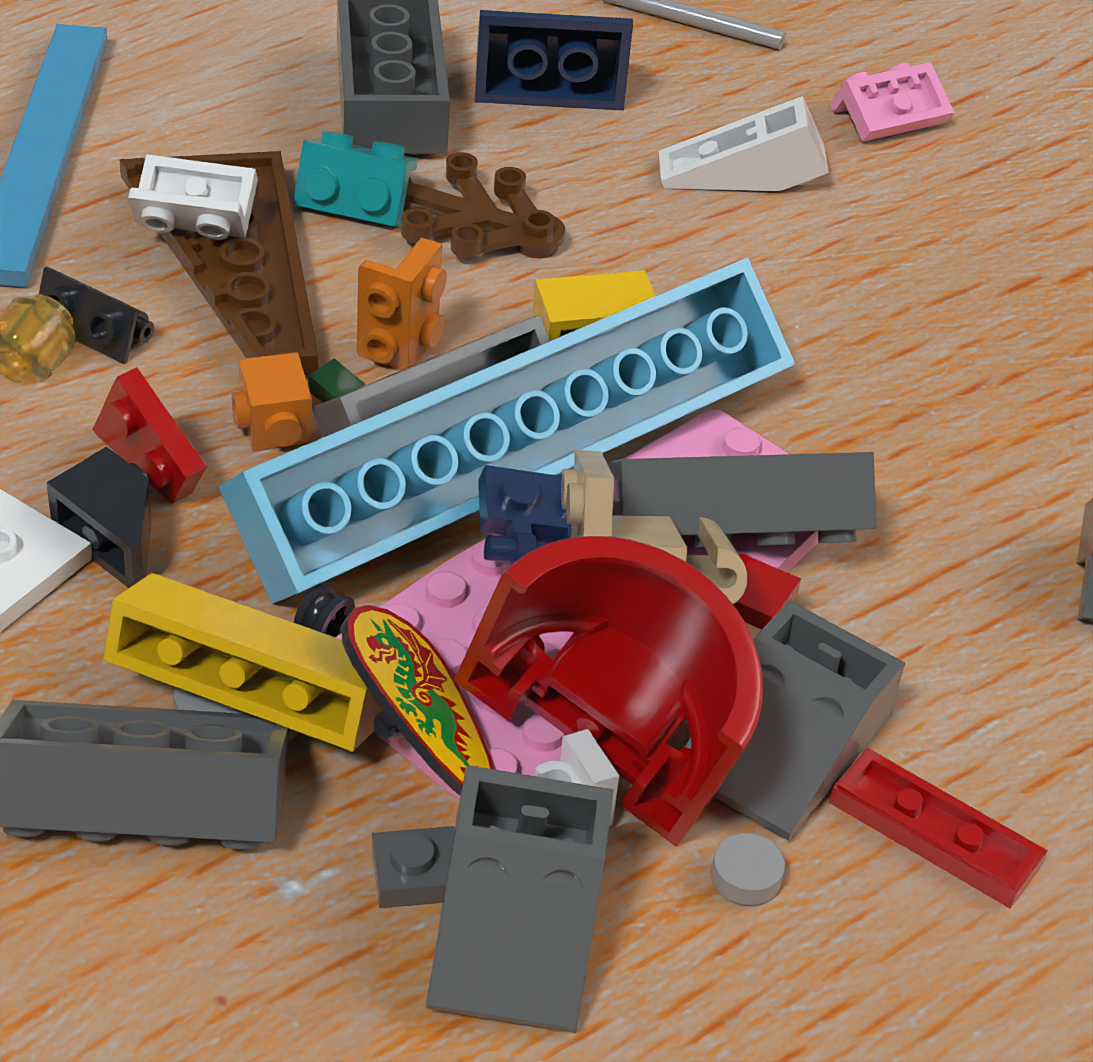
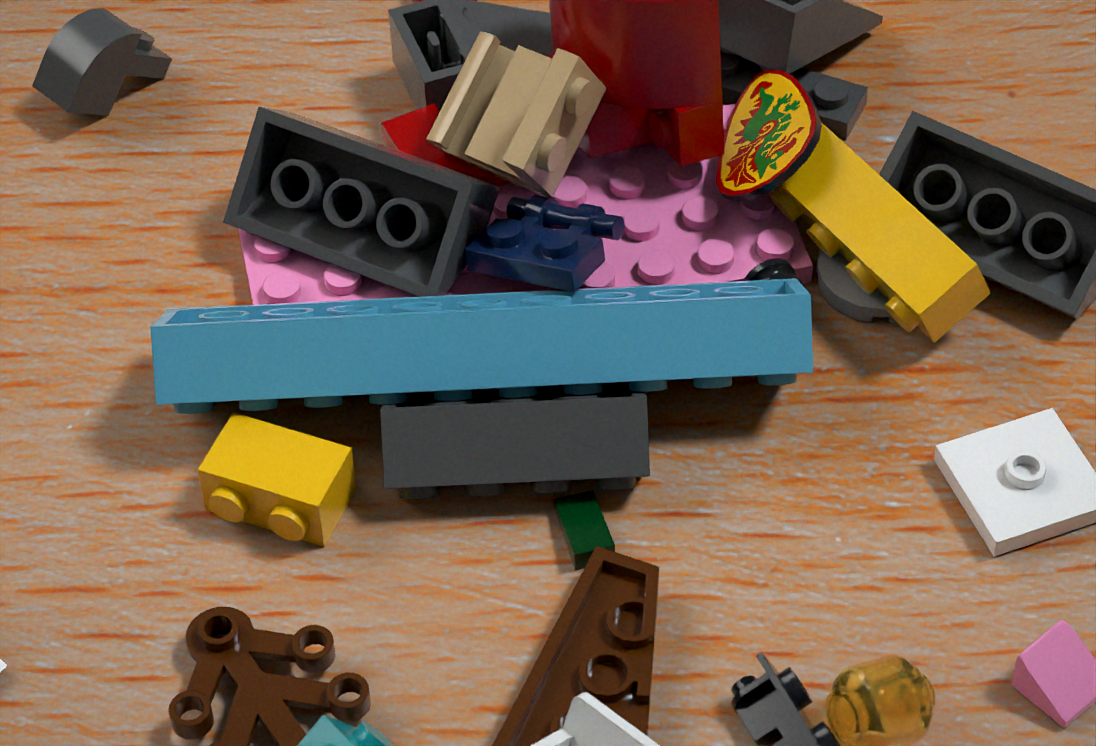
camera: 140 degrees left, 5 degrees up
(110, 508) = (906, 460): black slope -> none
(145, 434) = (833, 509): red wing -> none
(273, 402) = (675, 516): orange brick -> none
(401, 307) = (477, 525): orange bracket -> none

